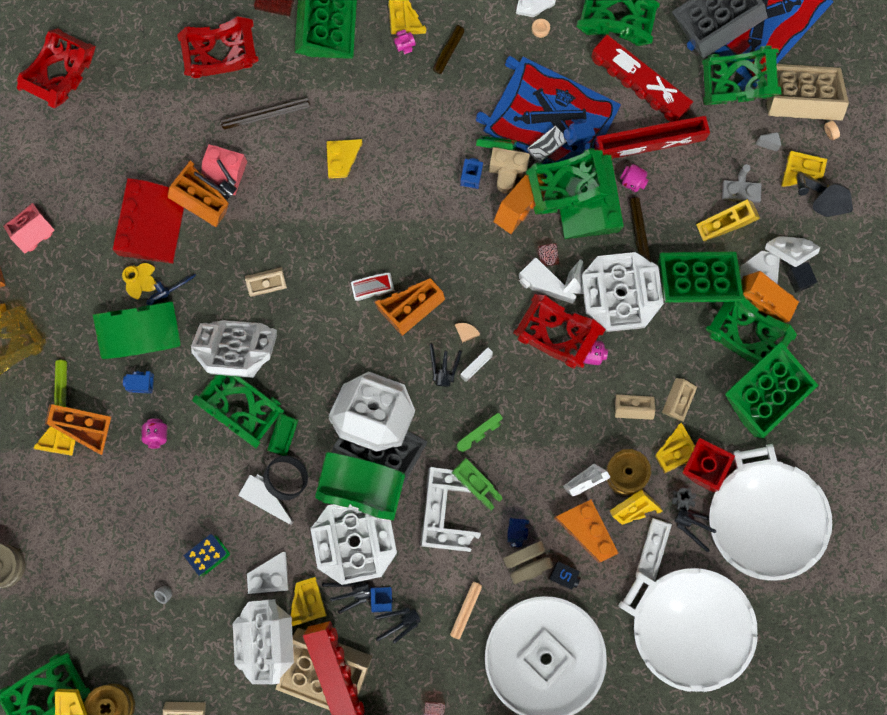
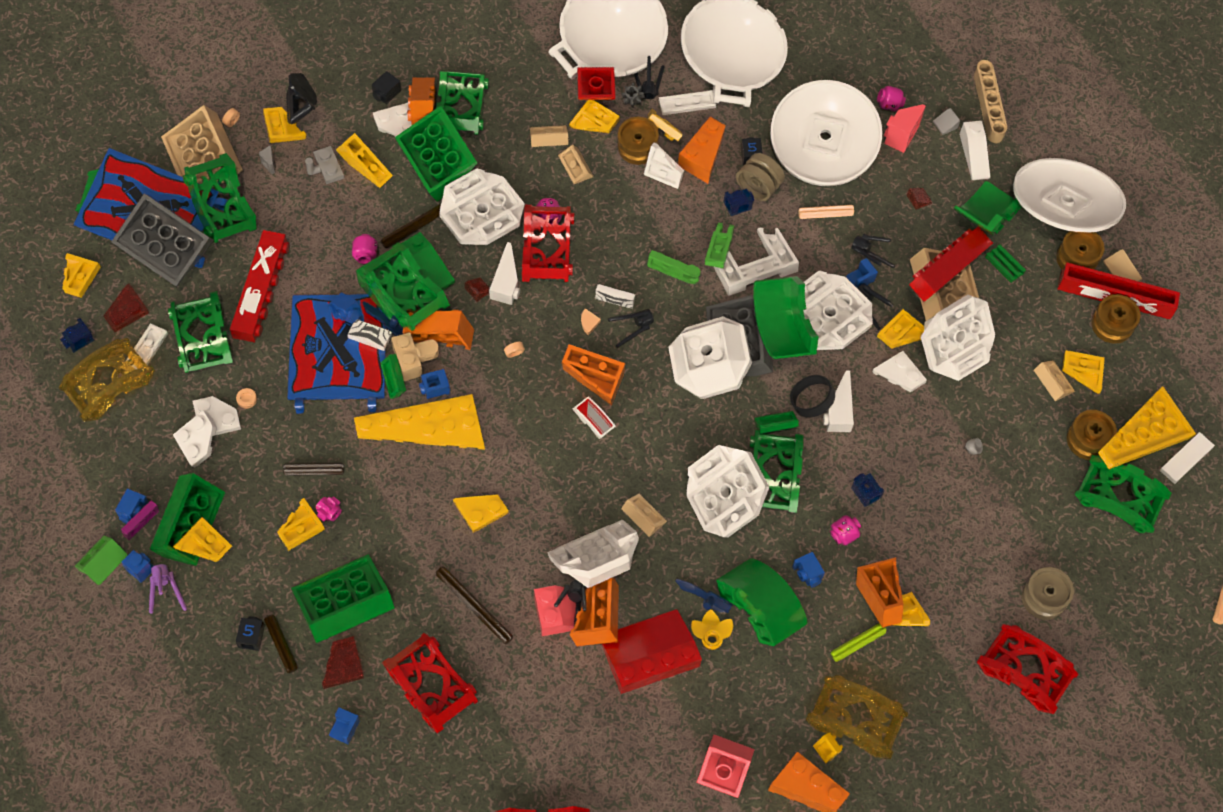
camera: 125 degrees left, 15 degrees down
(171, 479) = (867, 495): none -> clear blue brick
(207, 555) = (918, 425): dark blue piece -> none
(242, 210) = (597, 554): none -> white piece
(437, 162) = (433, 423): none -> yellow wing
(470, 253) = (514, 349): none -> light nougat tile
(574, 282) = (489, 252): white slope -> none
(653, 137) = (319, 249): red brick -> none
(770, 391) = (507, 63): green slope -> none
(792, 249) = (365, 102): white plate -> none

